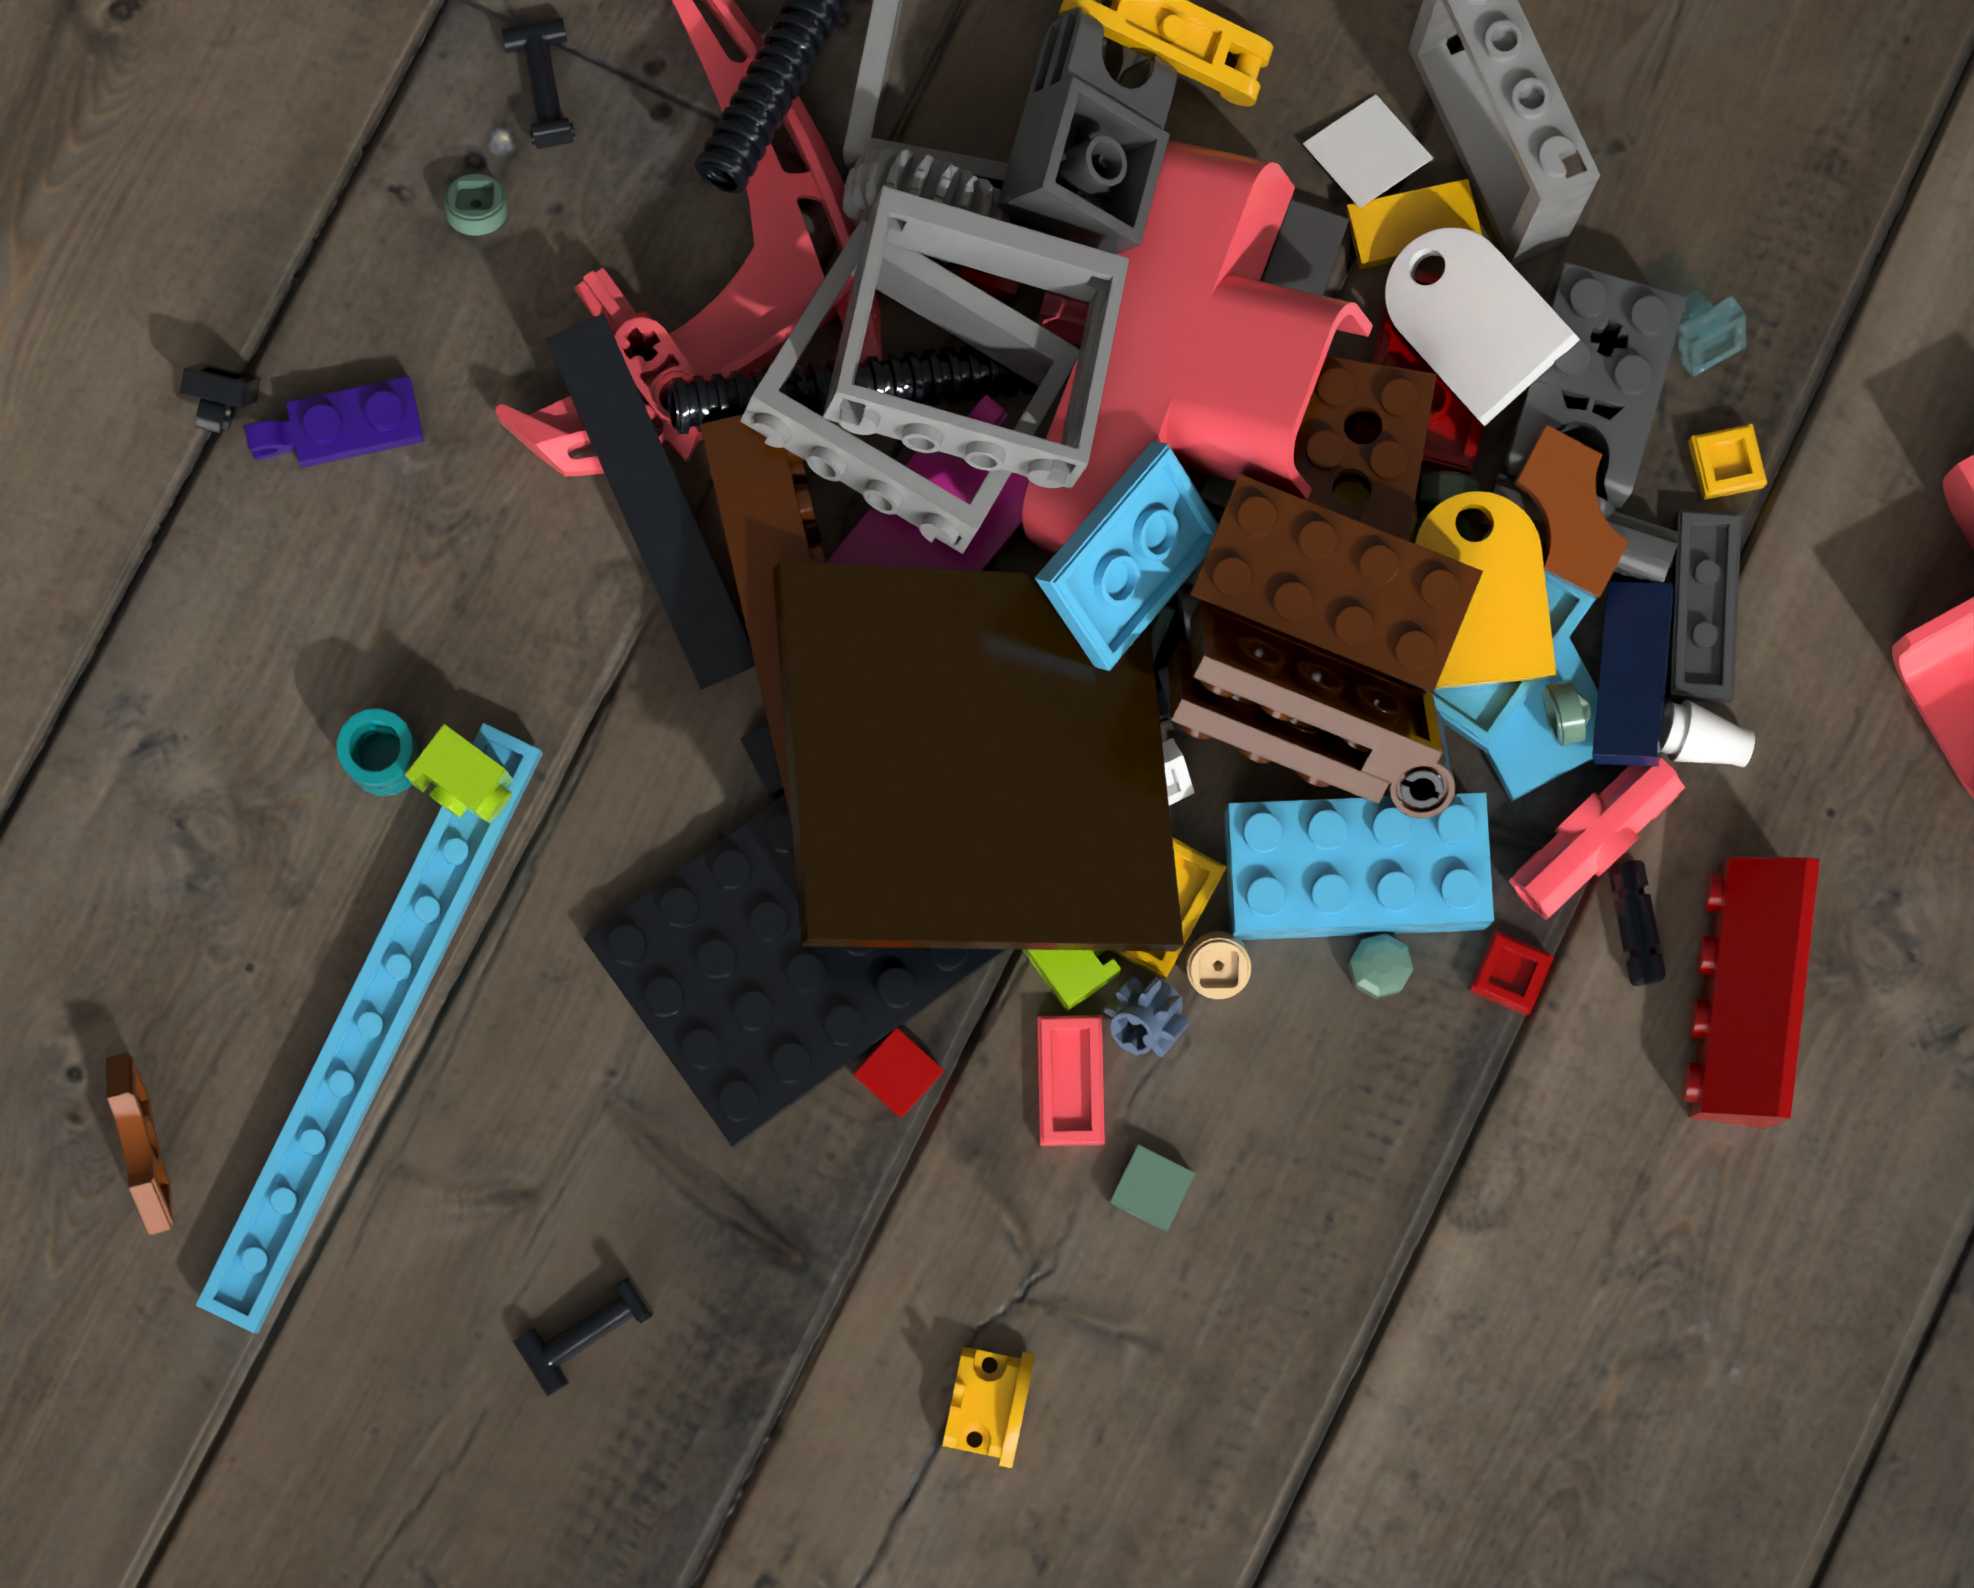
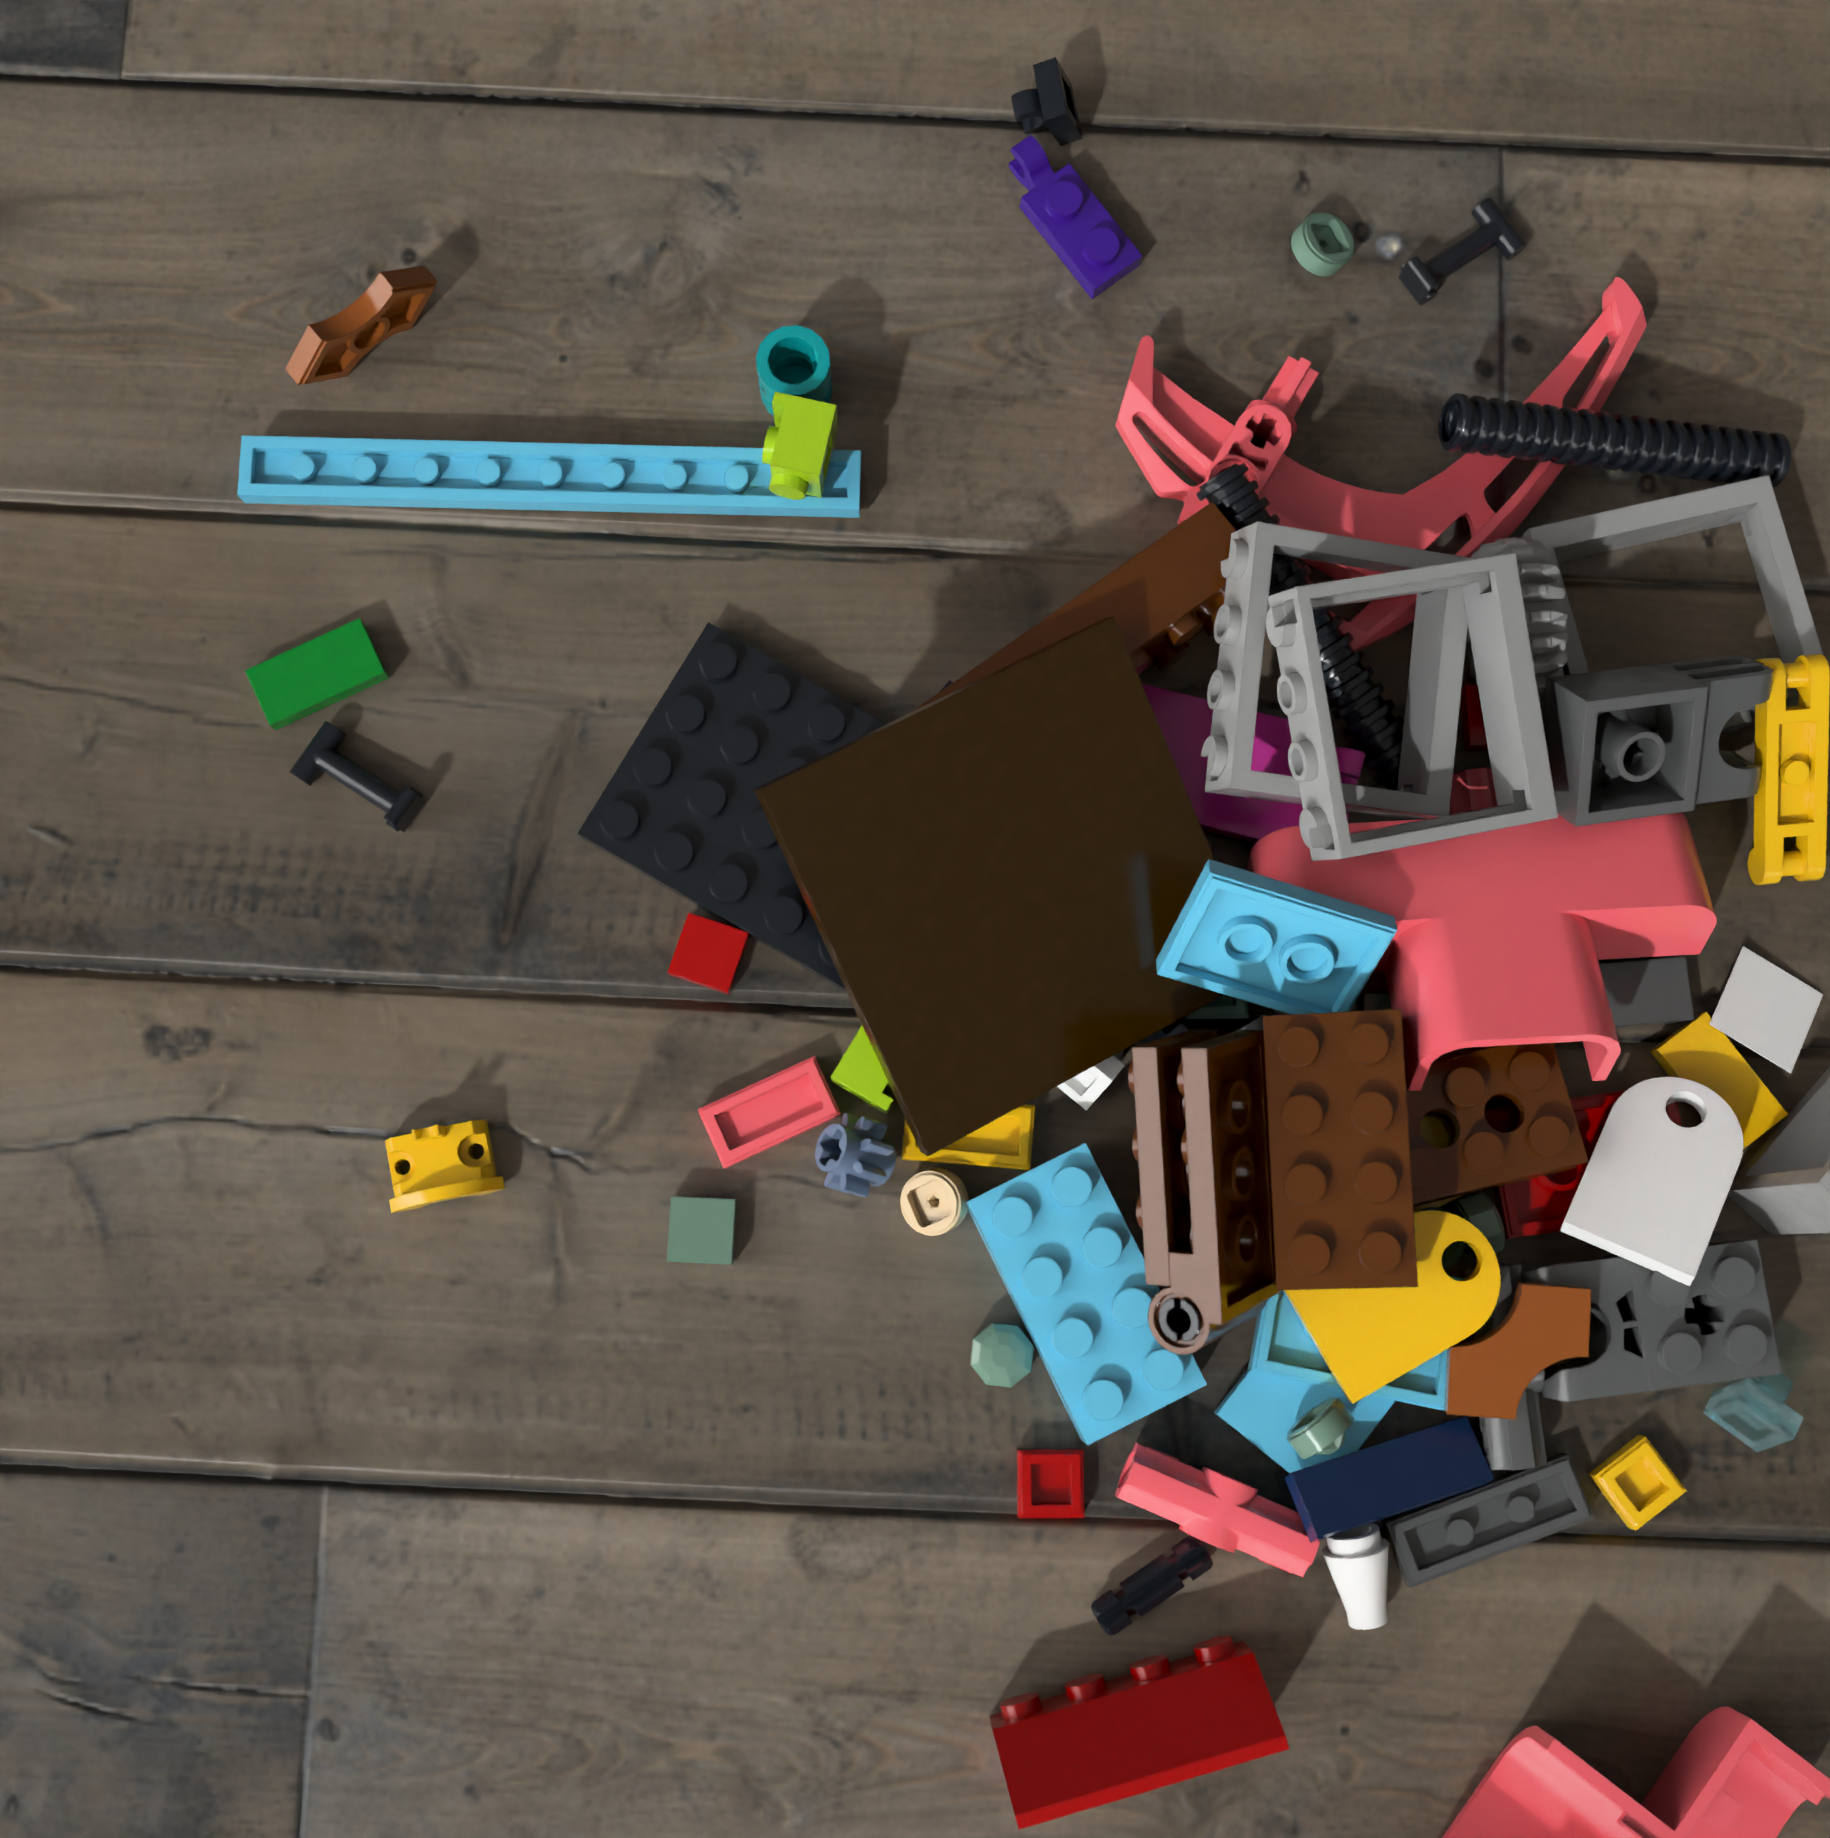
camera: 65 degrees right, 0 degrees up
(462, 1331) = (317, 674): none -> green tile
(651, 501) = (1134, 491): black tile -> none

